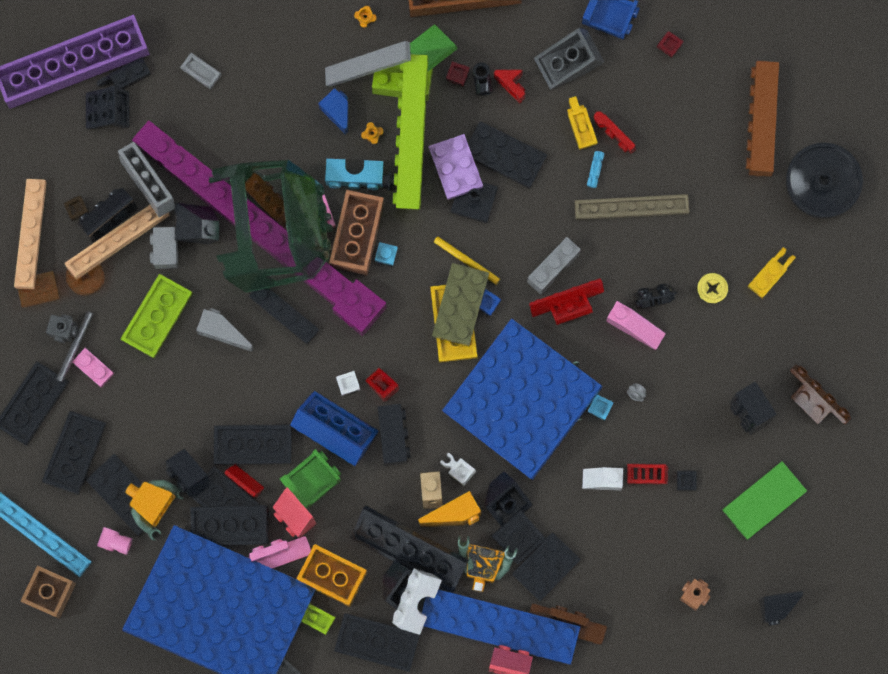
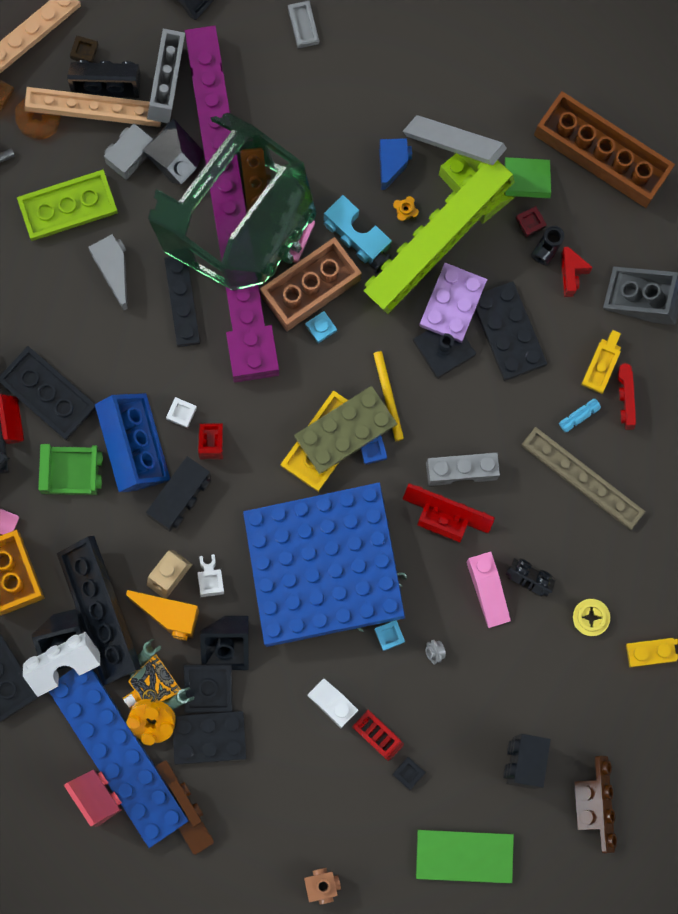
camera: 30 degrees right, 0 degrees up
(293, 513) = (24, 487): coral slope -> none
(366, 10) = (493, 94): light orange plate -> none
(510, 593) = (148, 732): none -> light orange plate

